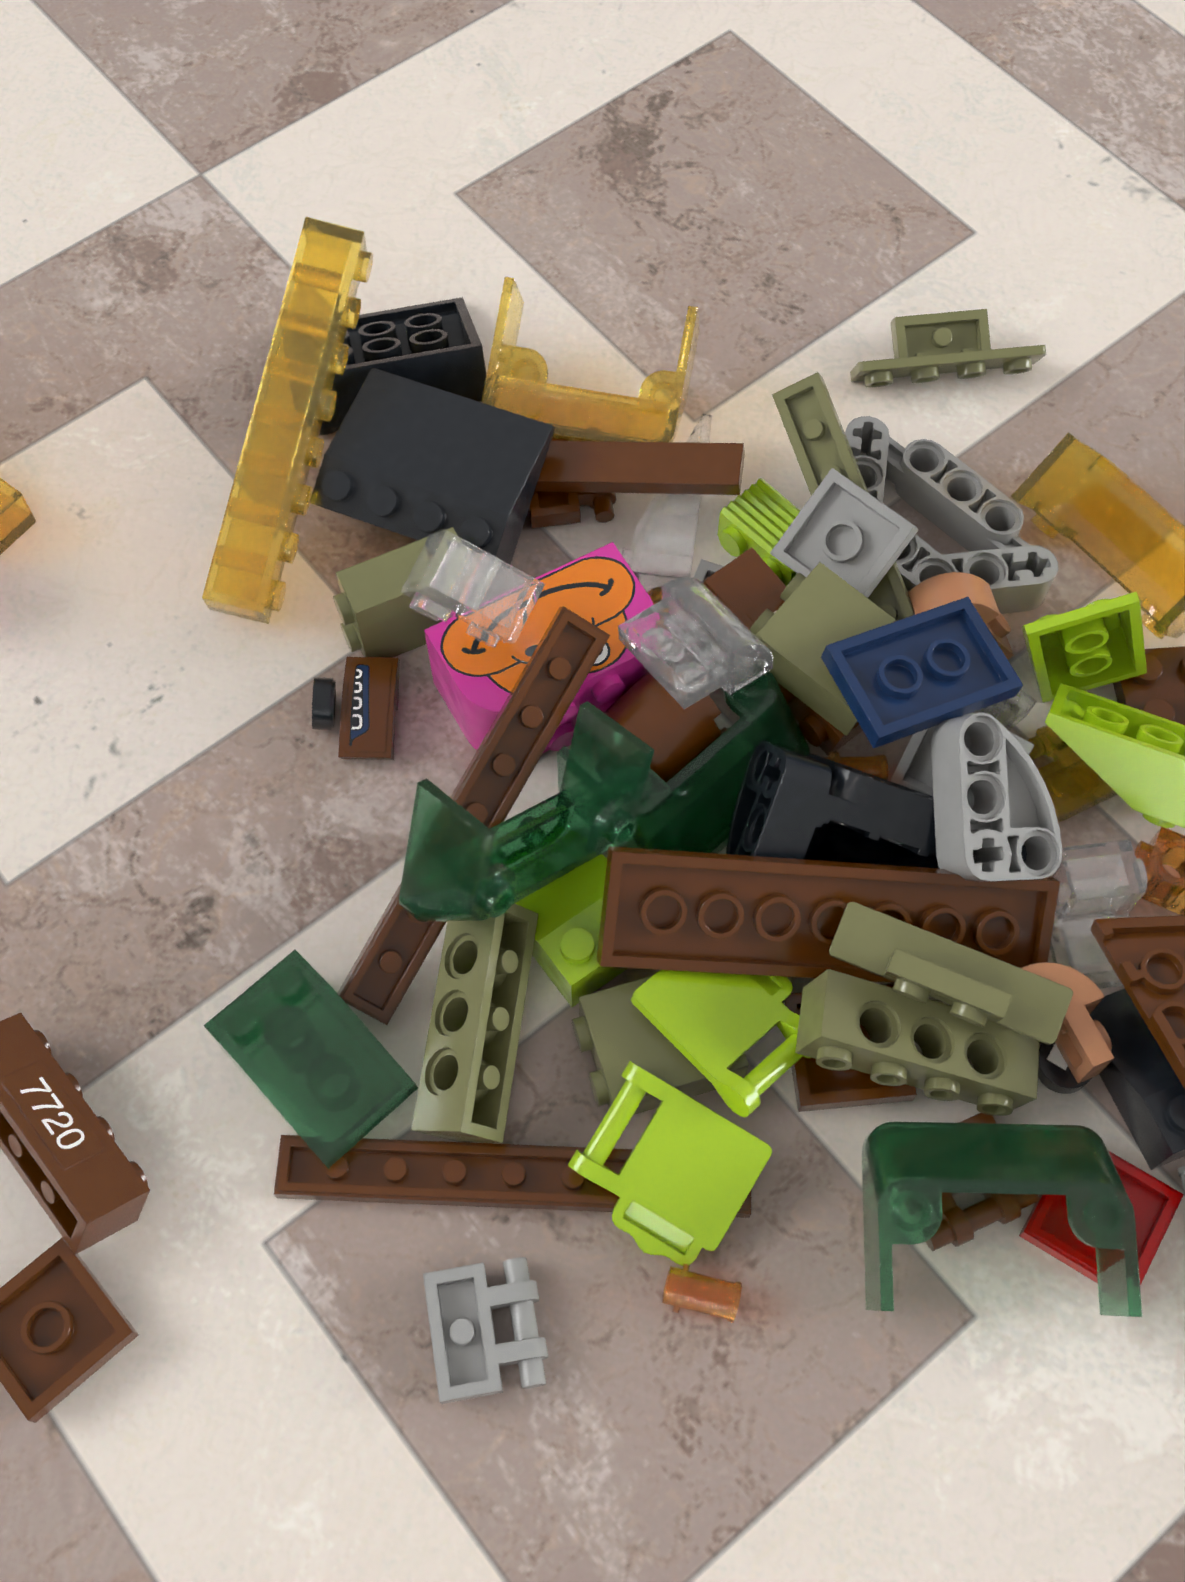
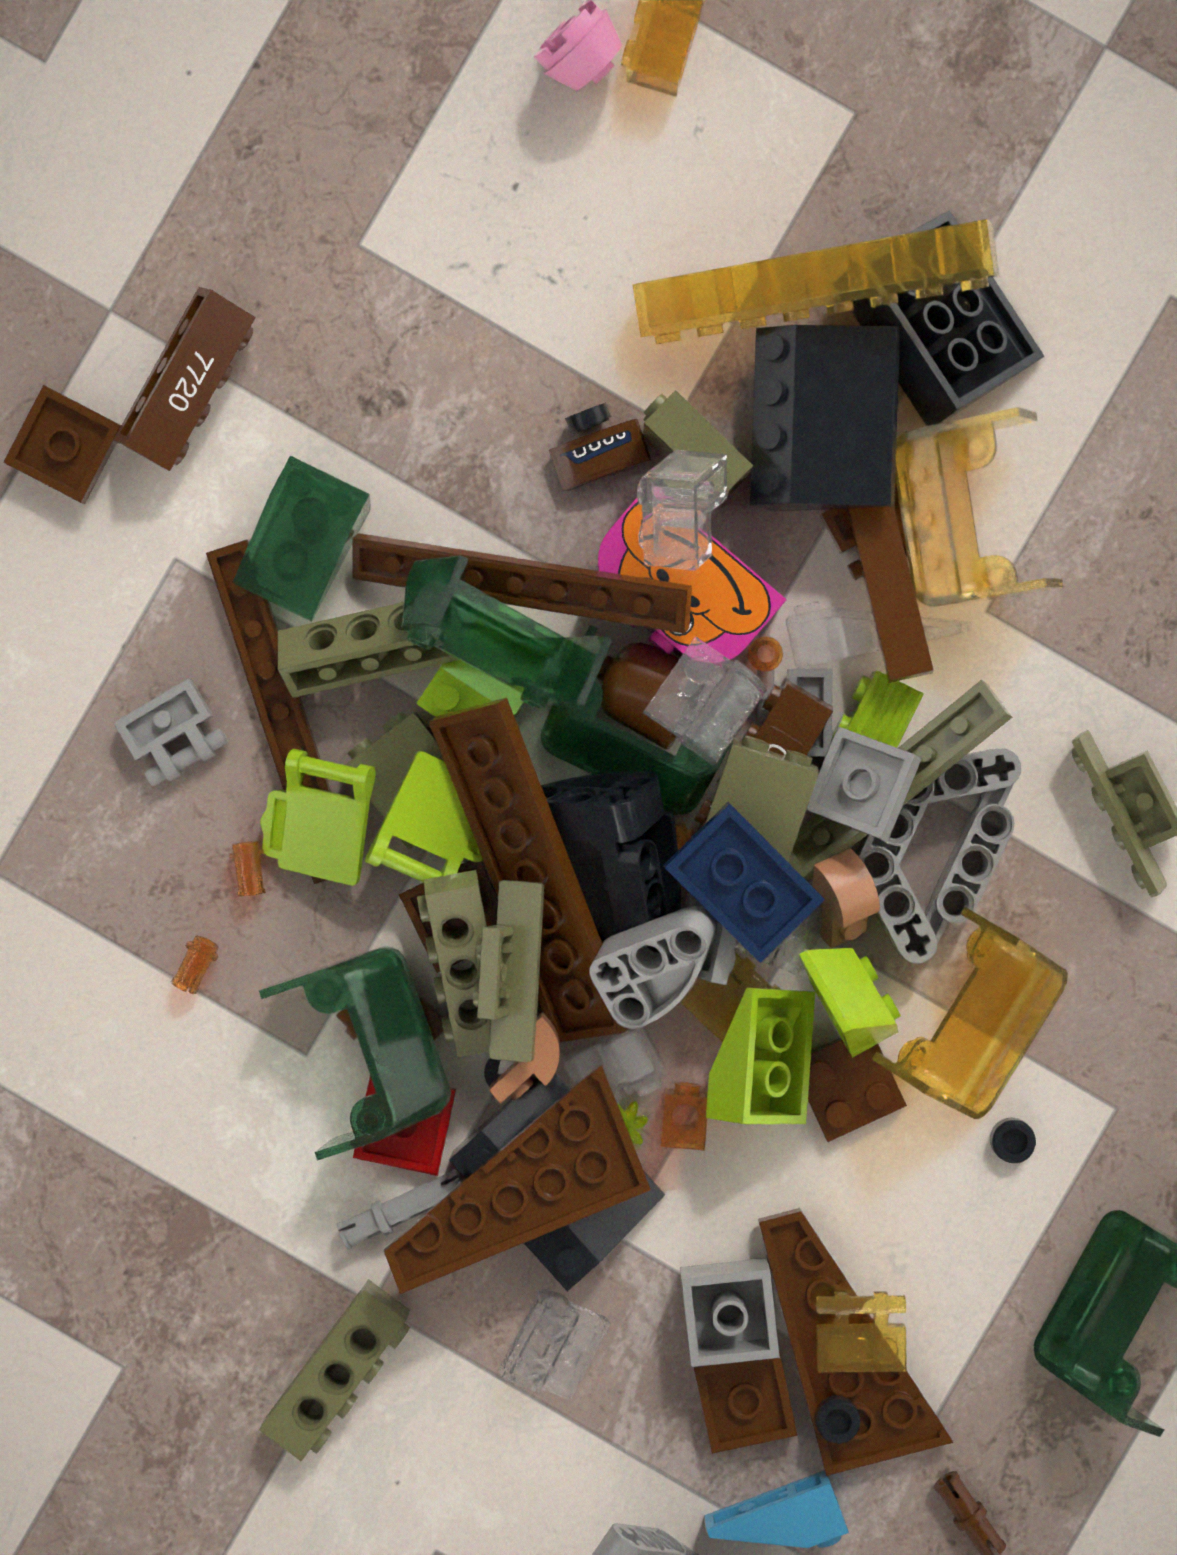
camera: 70 degrees right, 25 degrees up
(808, 1418) = (195, 964): none -> clear orange pin

